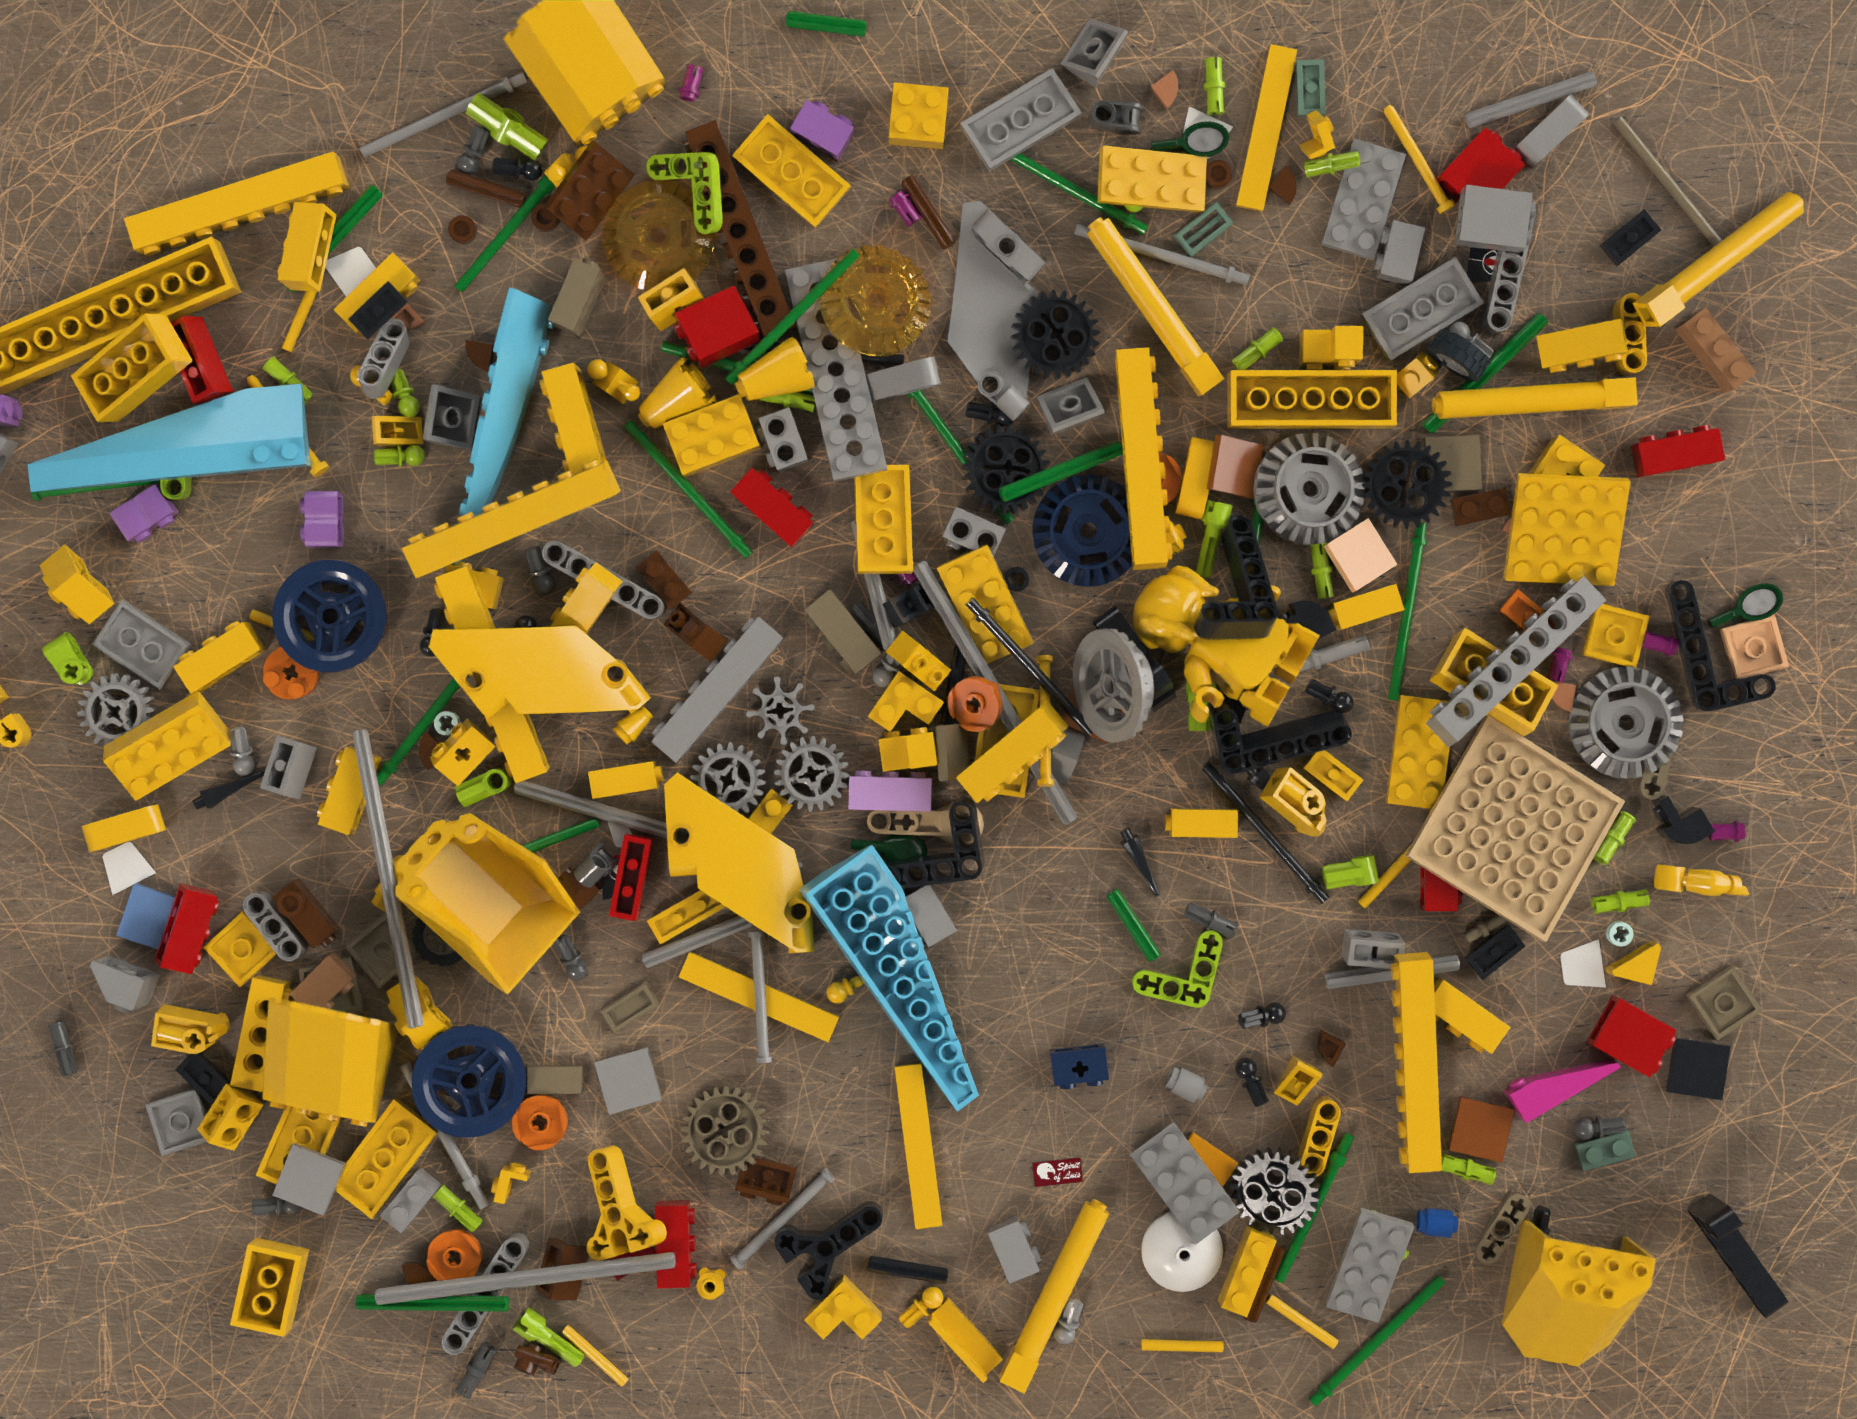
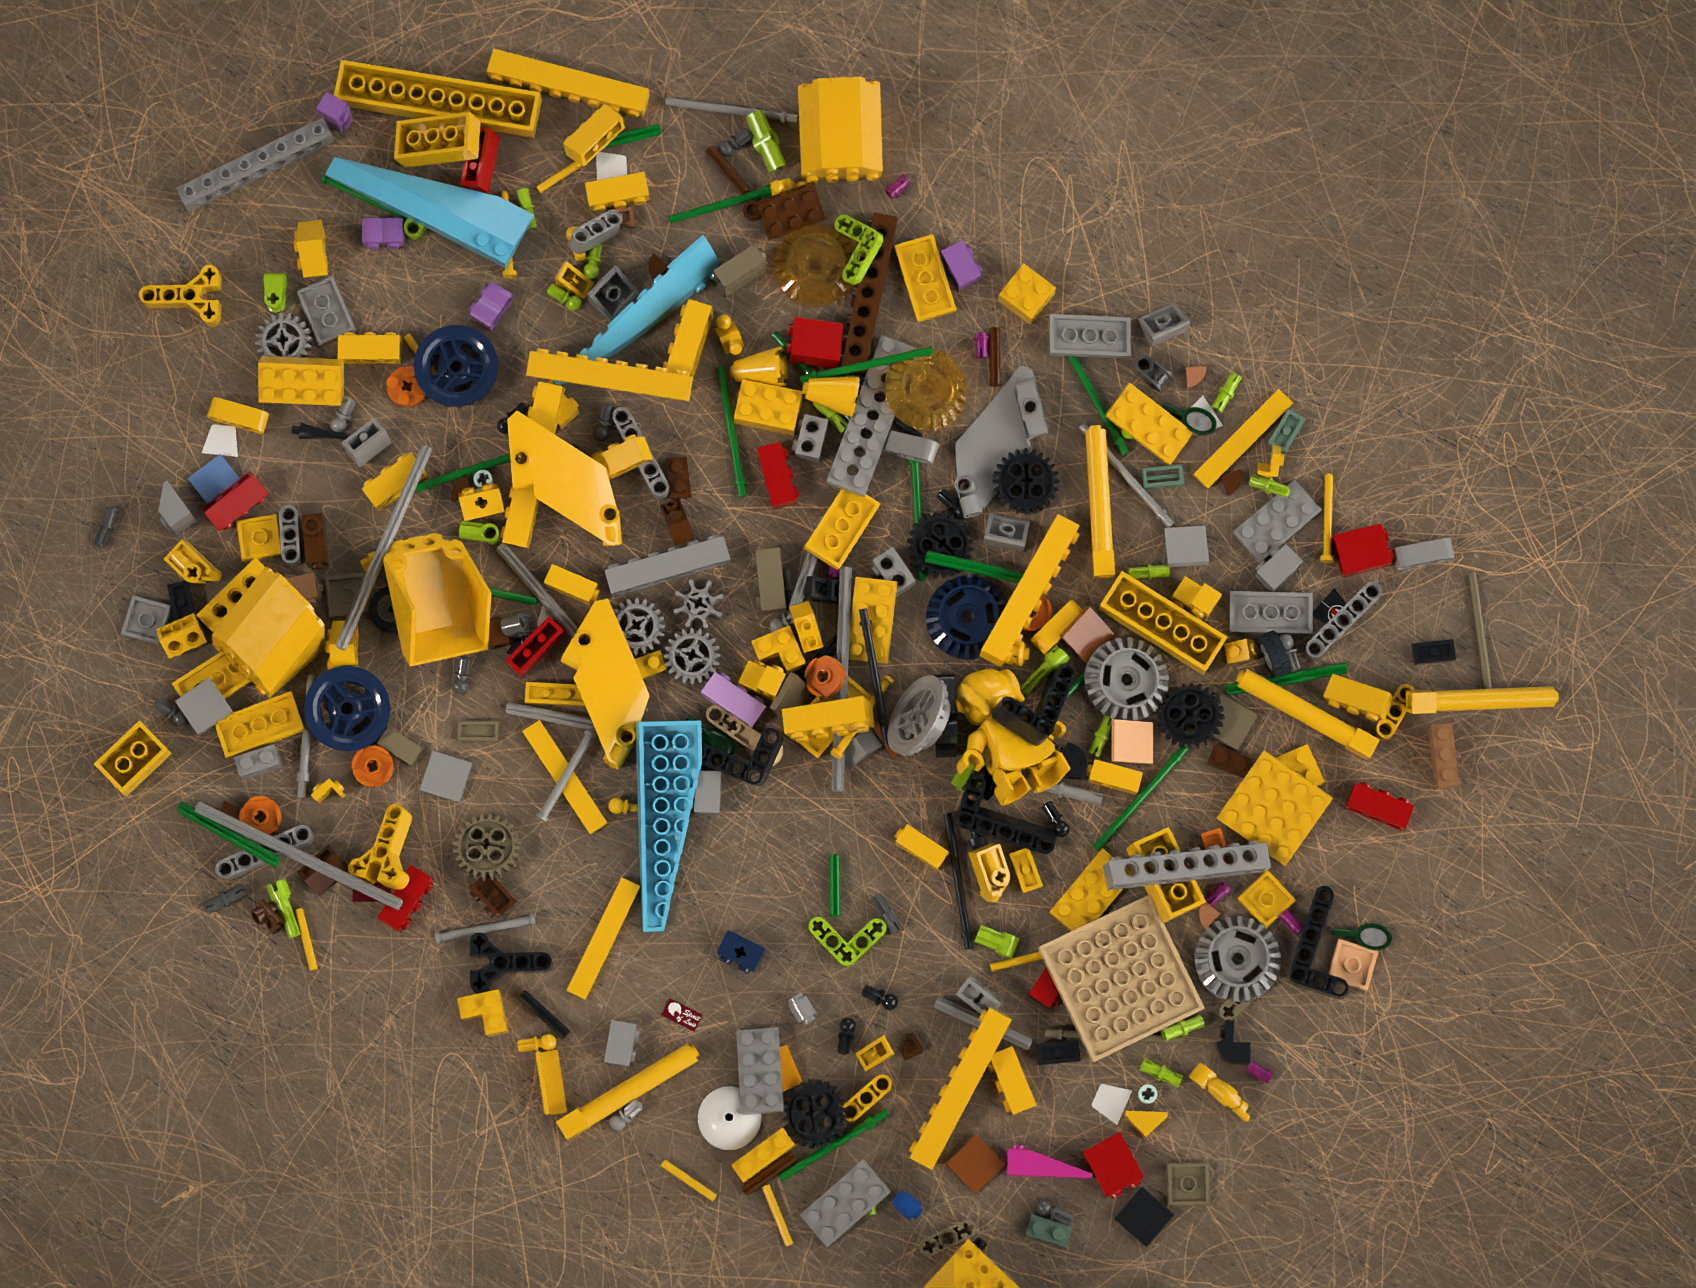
camera: 30 degrees right, 10 degrees down
(378, 310) = (612, 200): black plate -> none
(457, 1208) = (283, 787): lime axle -> none
(462, 229) = (696, 185): reddish brown tile -> none
(530, 169) = (763, 176): black axle -> none
(632, 725) = (599, 554): yellow cone -> none
(670, 297) = (797, 305): yellow brick -> none
(713, 1276) = (413, 947): yellow brick -> none
(826, 23) = (1006, 203): green axle -> none
(1017, 570) = (898, 623): black bush -> none
(1135, 850) = (866, 839): black piece -> none
(1218, 174) = (1193, 448): reddish brown tile -> none
(1281, 293) = (1186, 546): none -> light grey tile
(1377, 1340) = (766, 1270): green bar -> none
(1468, 1169) = (949, 1184): lime pin -> none
(1494, 219) = (1349, 582): light grey brick -> none
(1530, 99) = (1423, 526): light grey axle -> none

